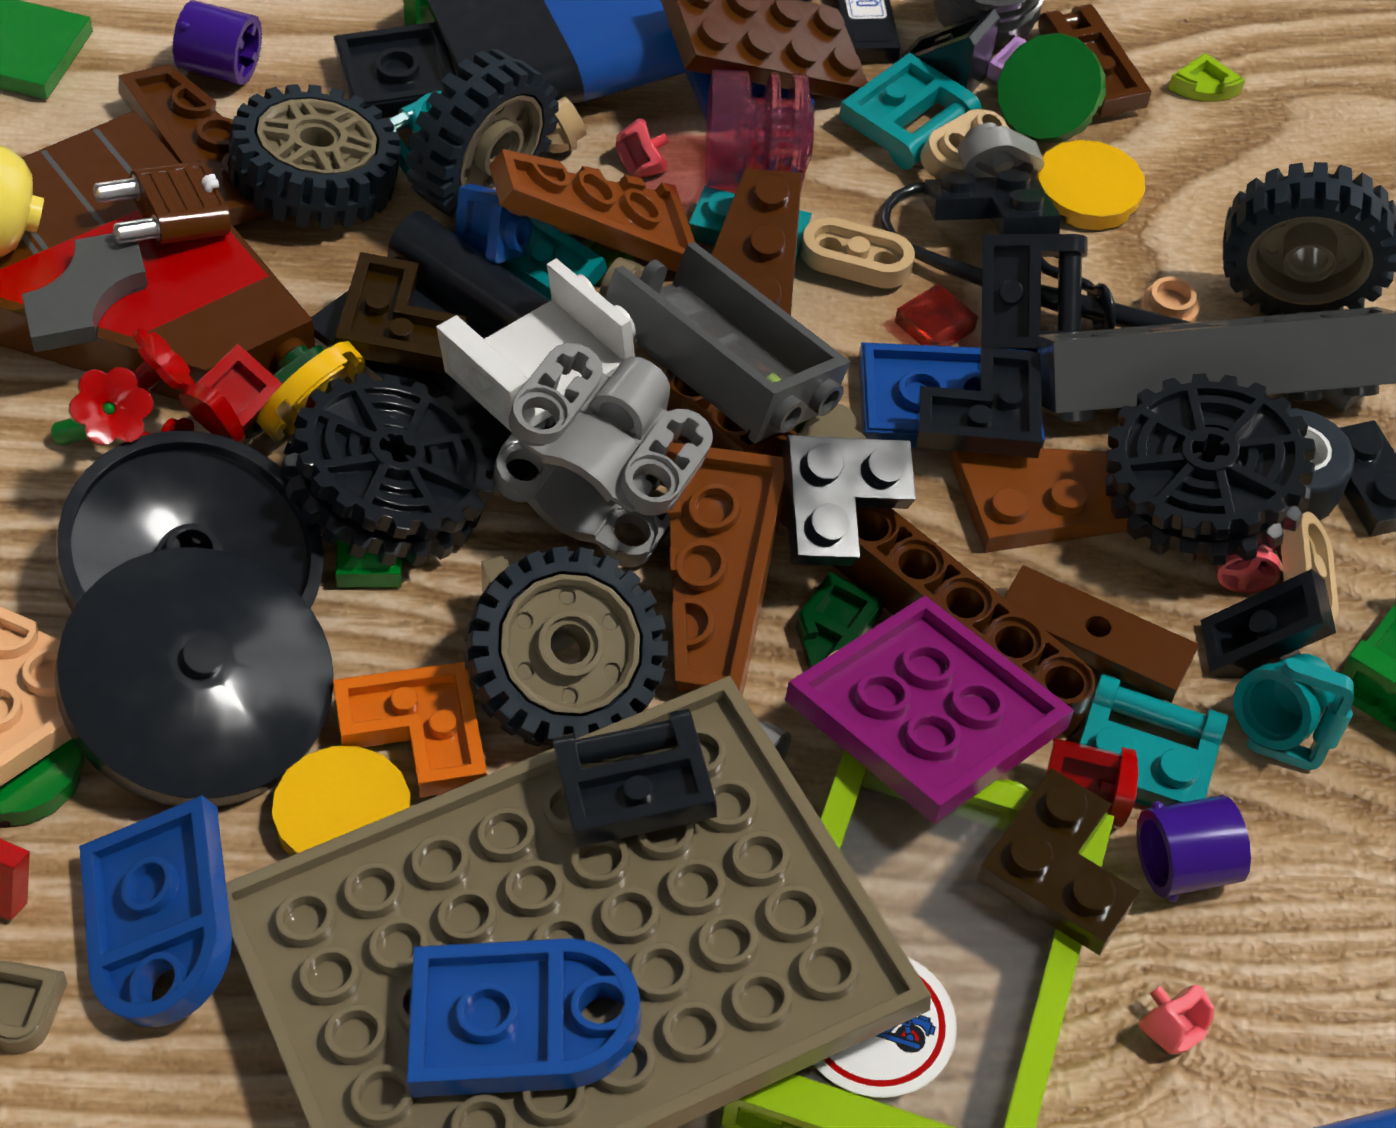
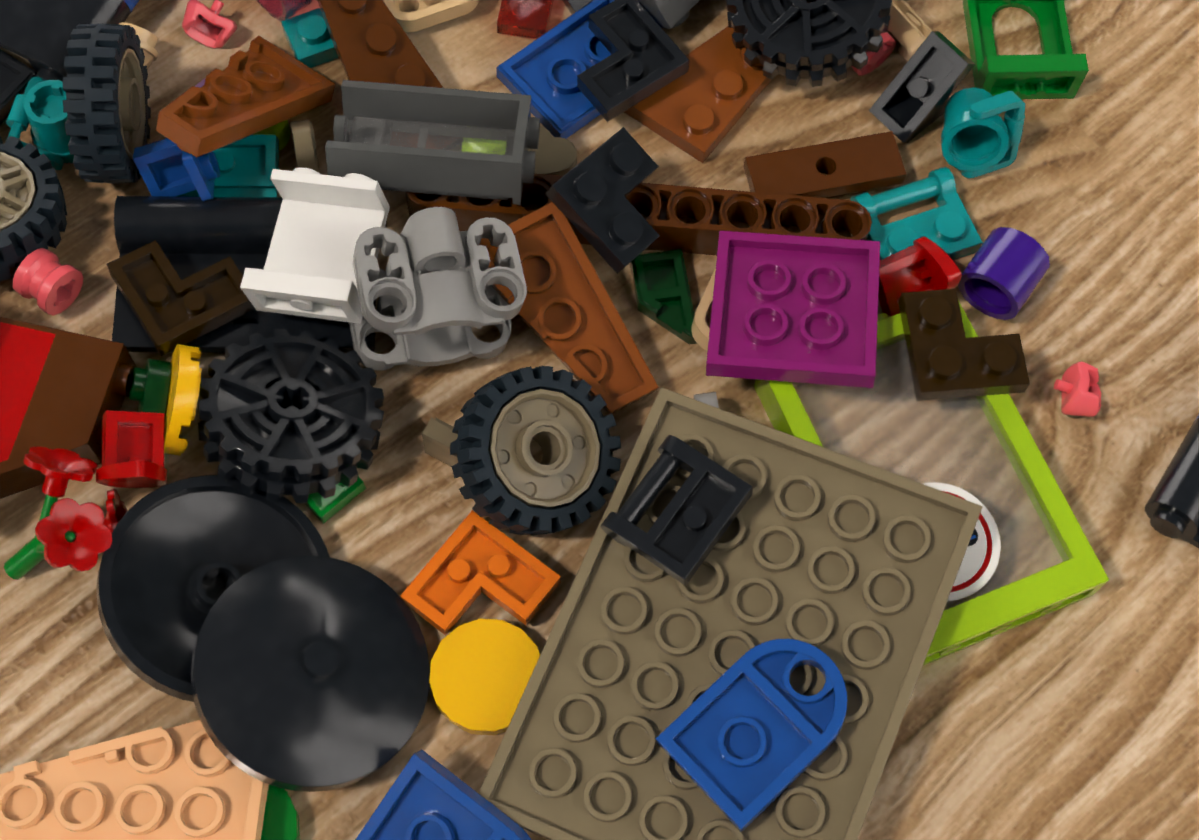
camera: 40 degrees left, 15 degrees up
(309, 244) = (47, 281): none -> coral wheel

